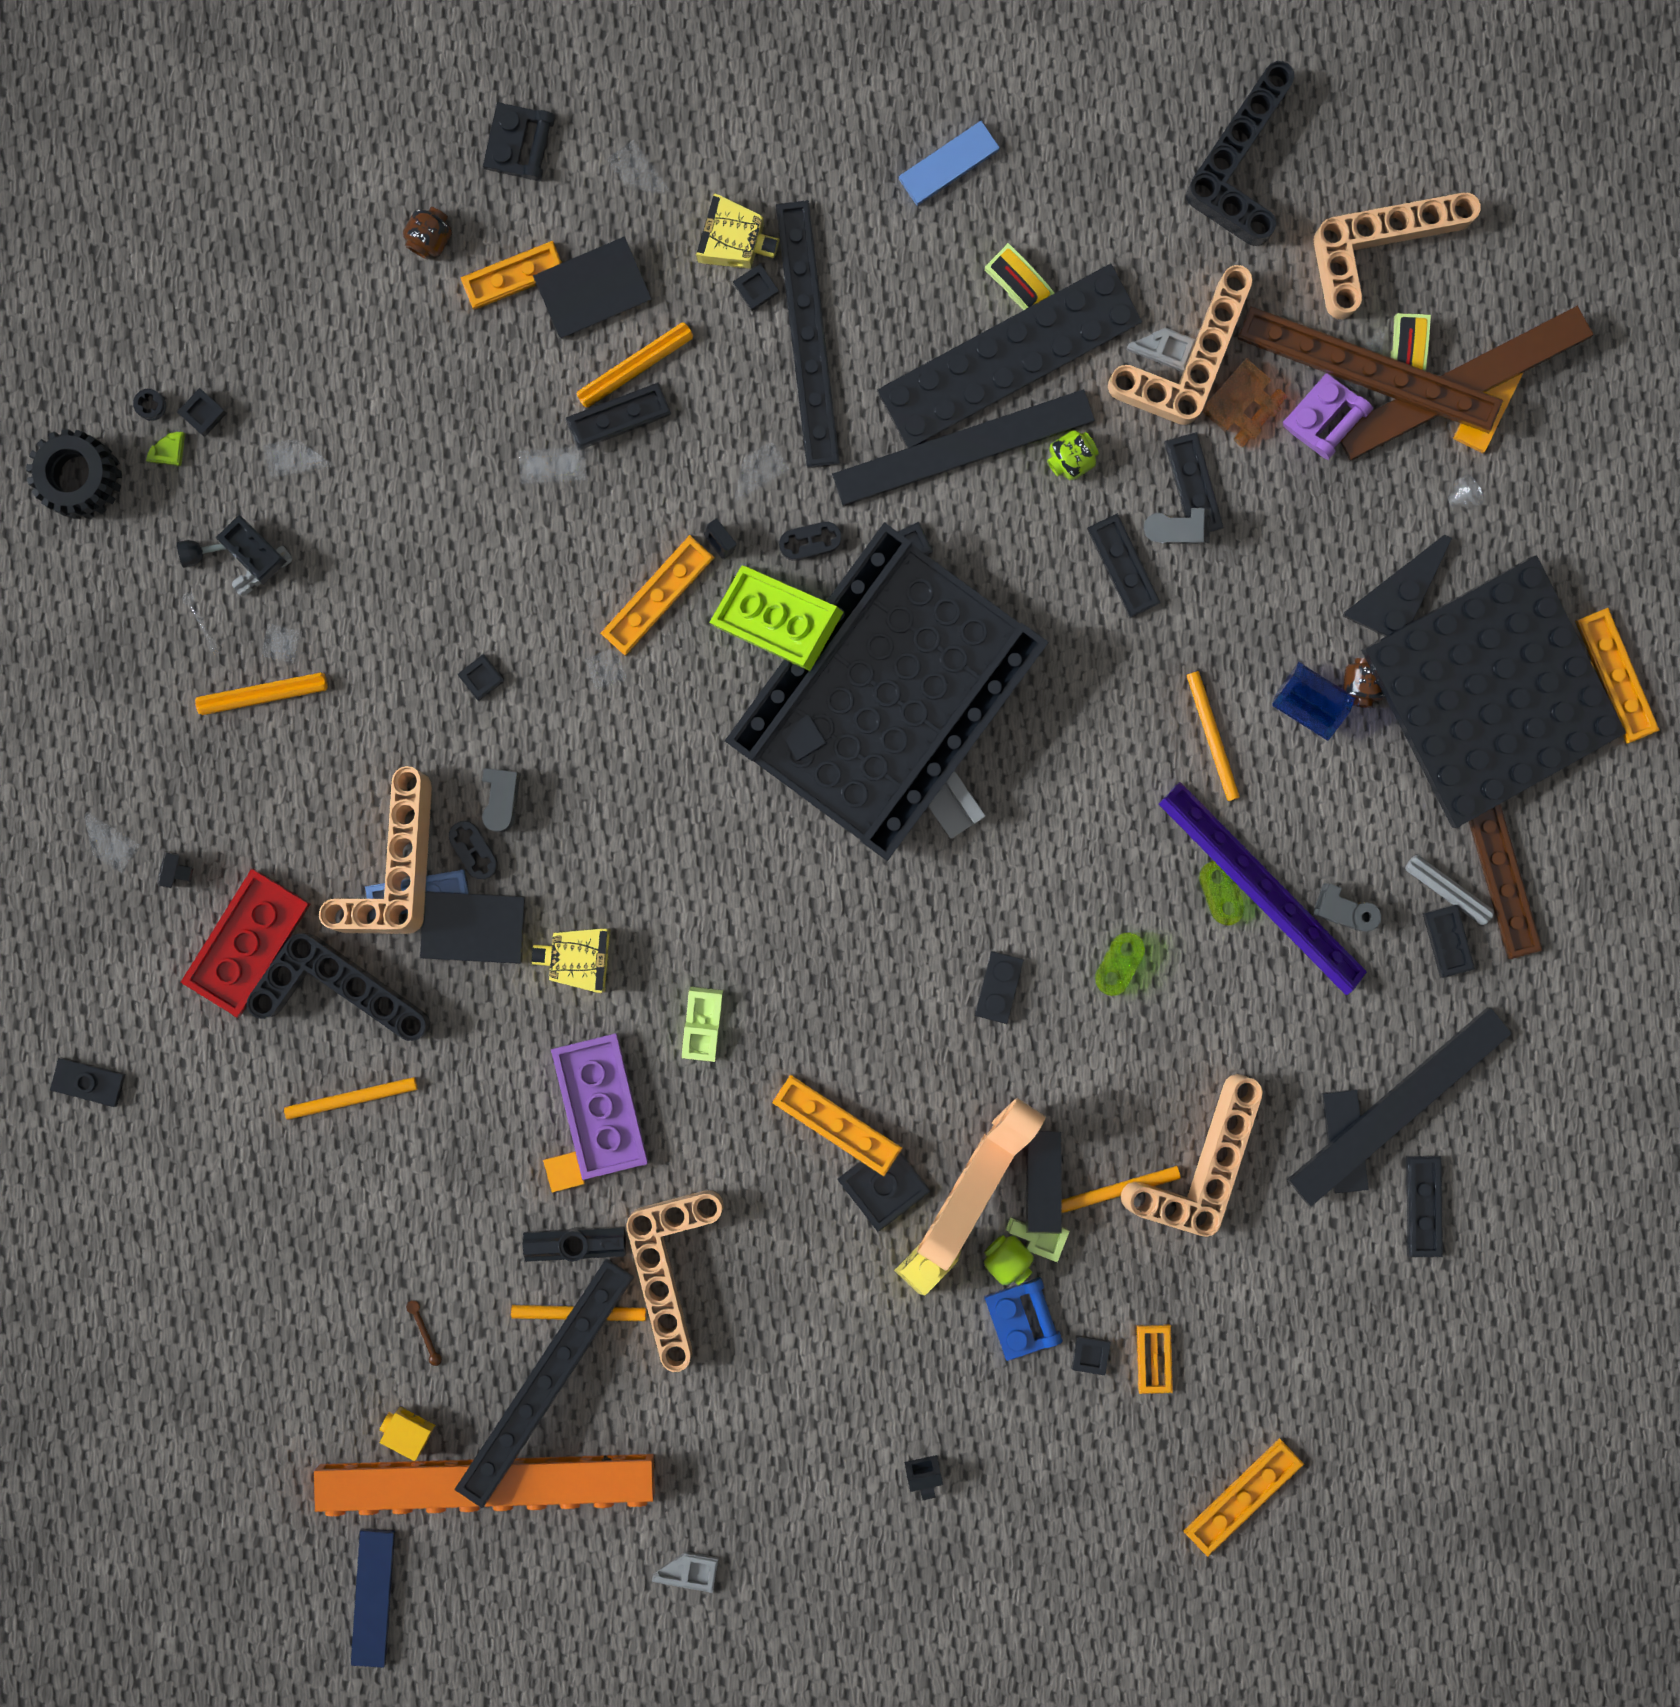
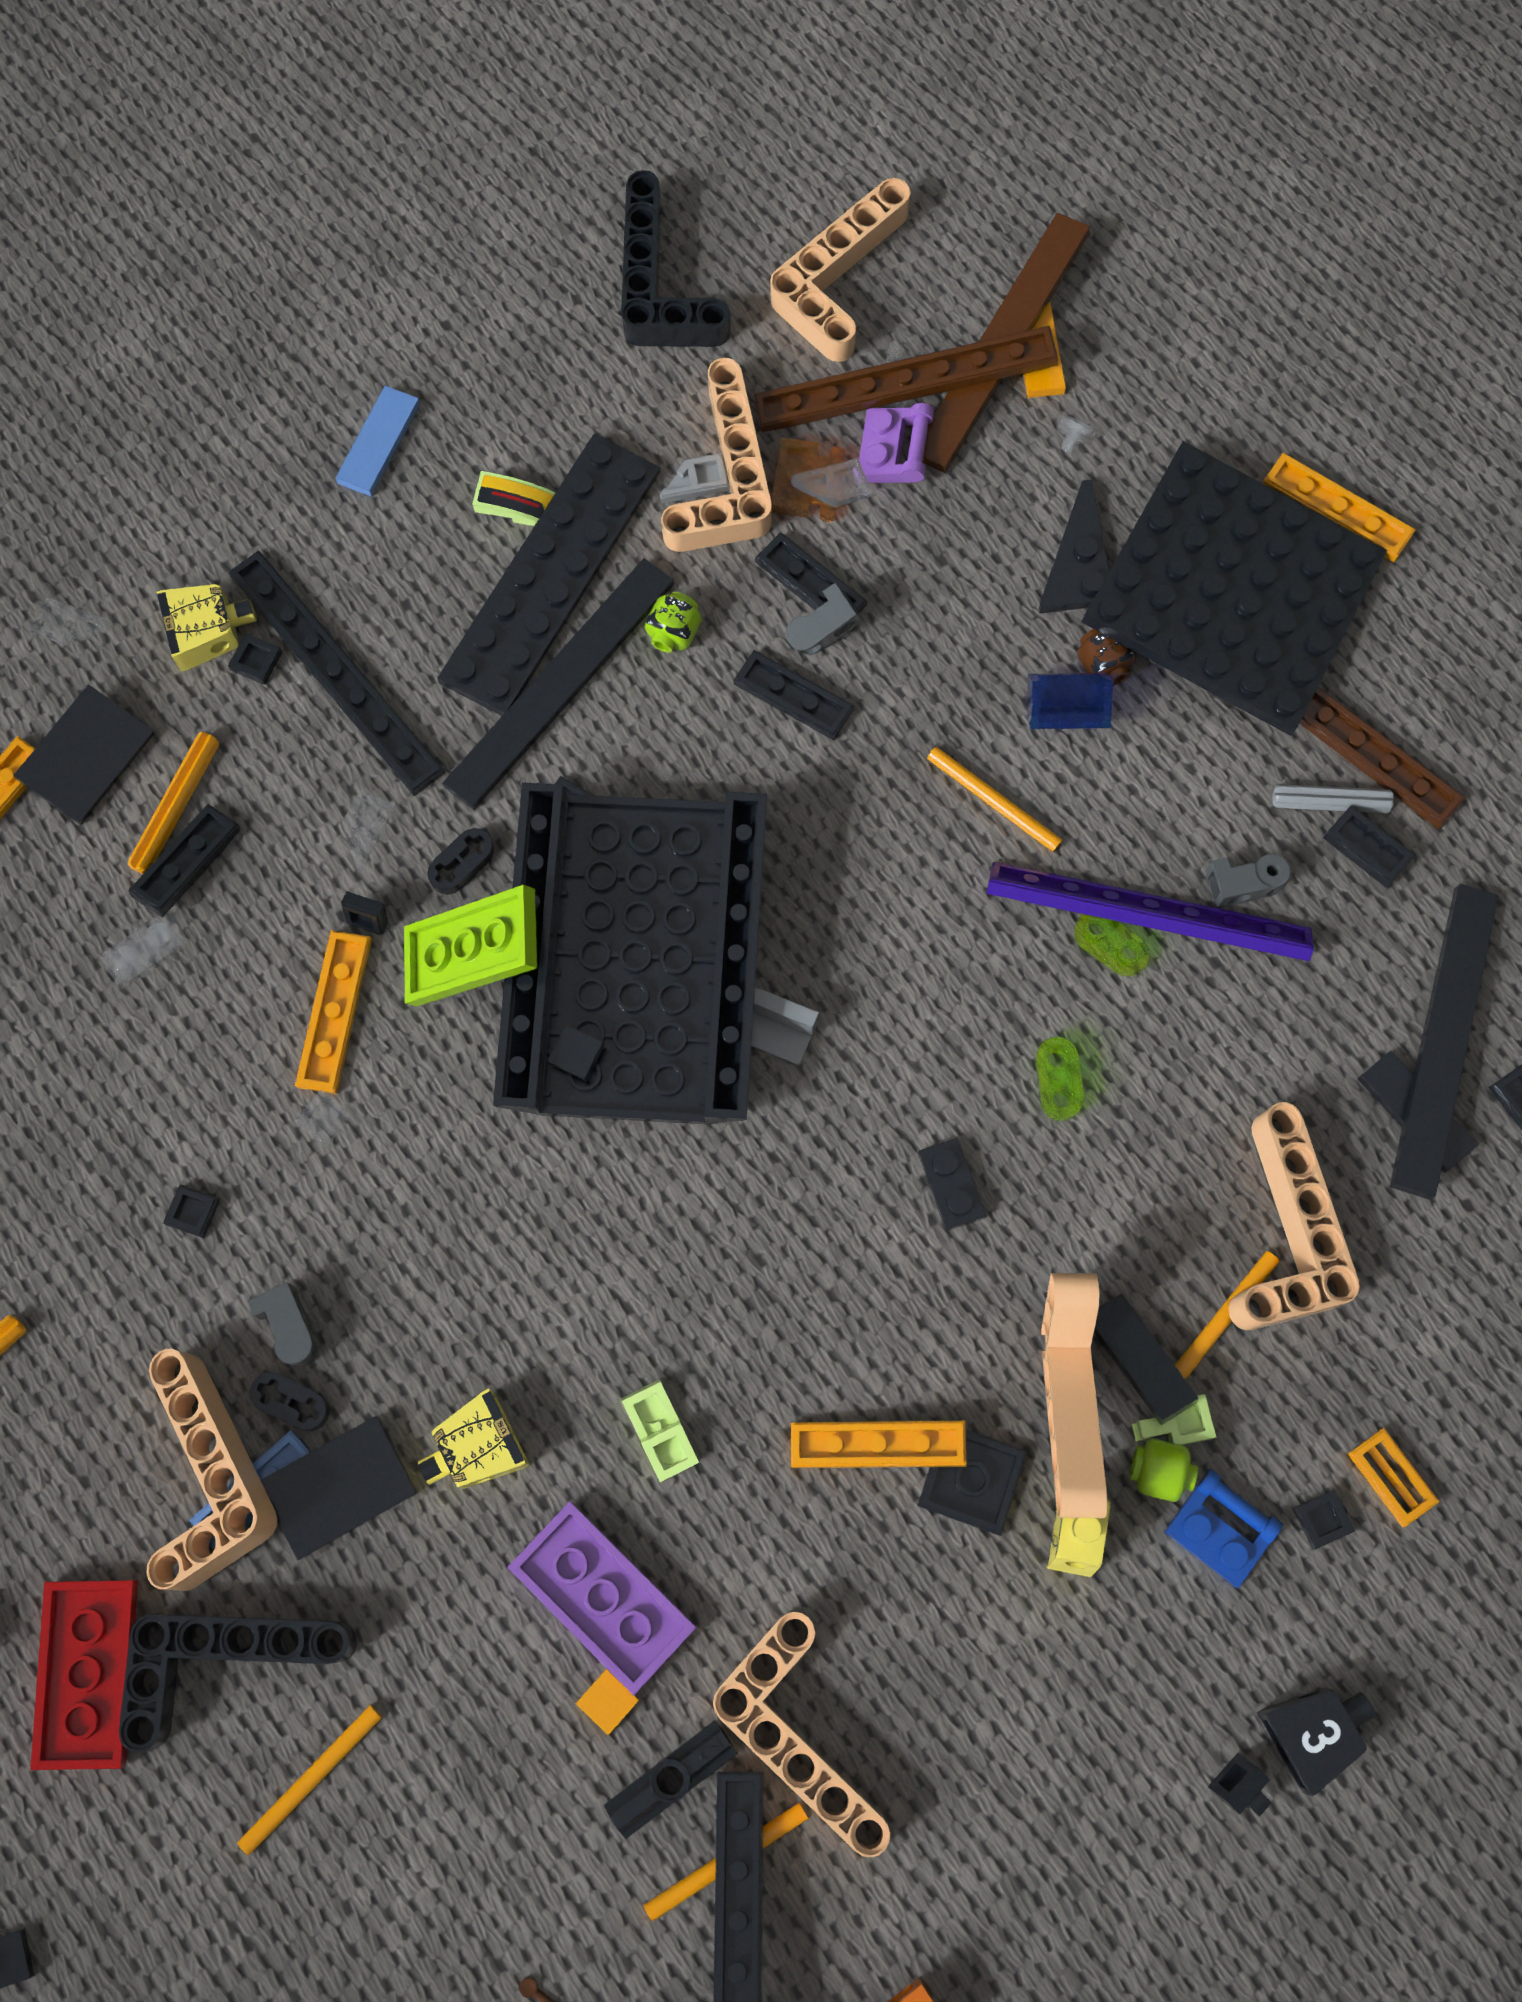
camera: 30 degrees left, 15 degrees down
(993, 1477) = (1318, 1735): none -> black torso
(1260, 423) = (835, 483): none -> clear tile
(1411, 339) = (924, 329): slope -> none

